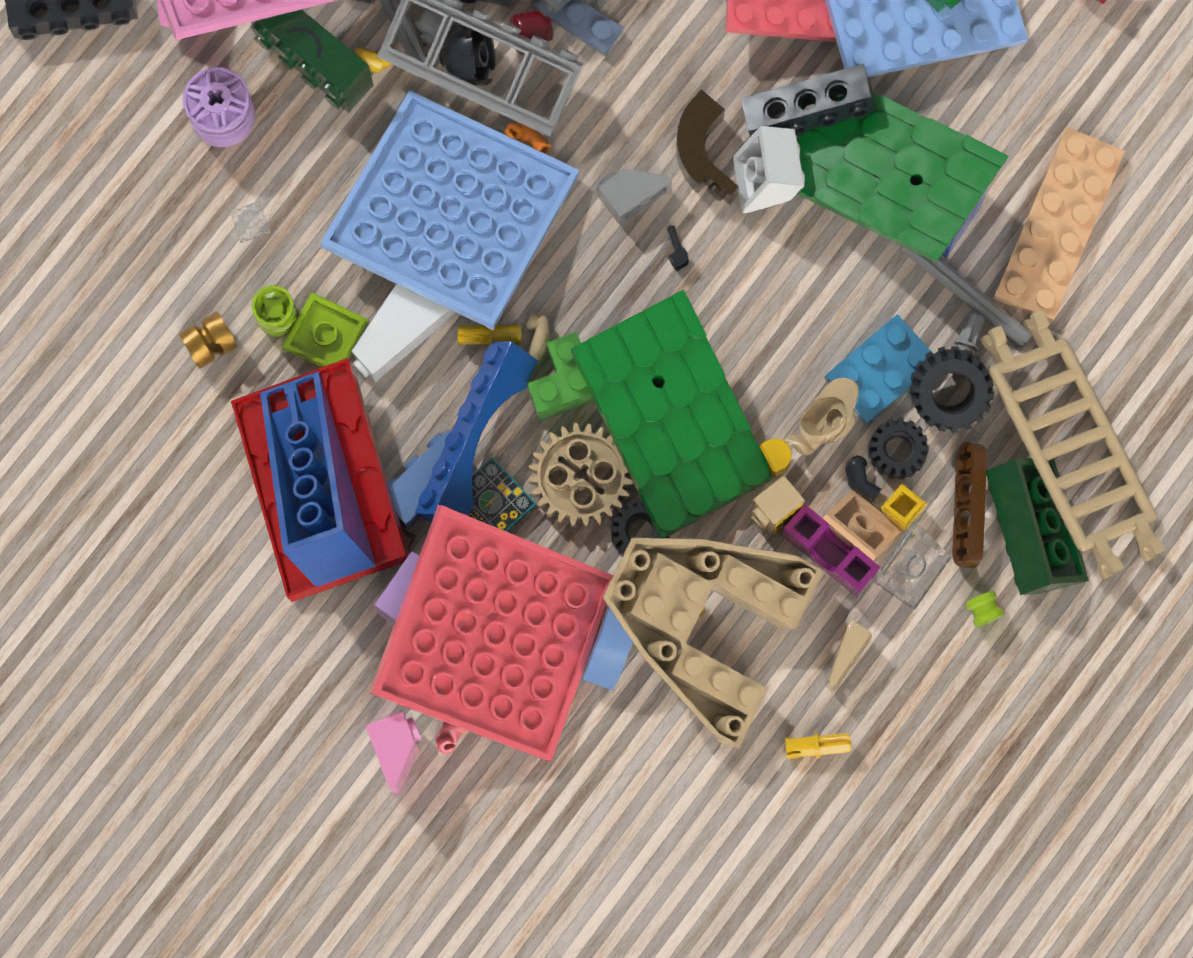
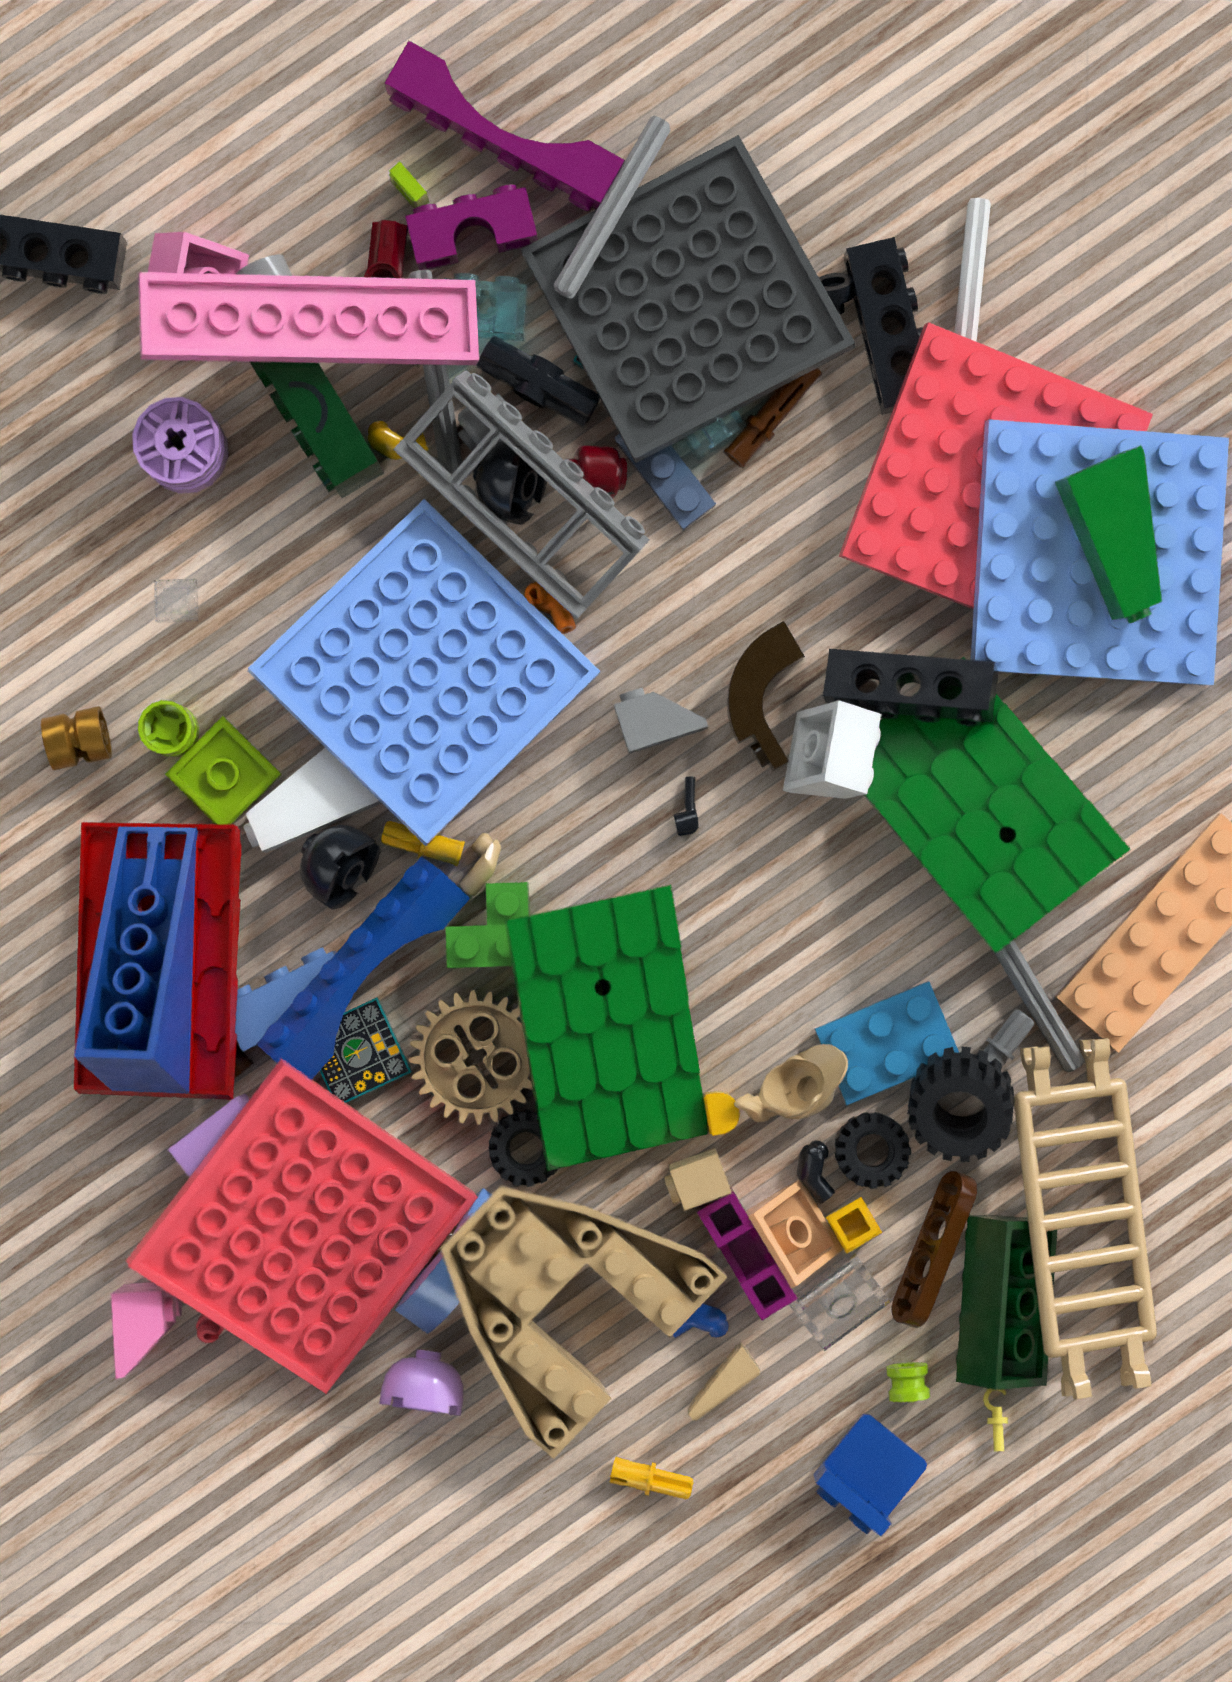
camera: 20 degrees right, 10 degrees up
(430, 367) = (335, 863): none -> black cylinder
(623, 729) = (423, 1384): none -> lavender cylinder
(815, 613) = (706, 1319): none -> blue arm
(980, 686) = (869, 1474): none -> blue bracket
(1061, 617) = (996, 1420): none -> light yellow hand

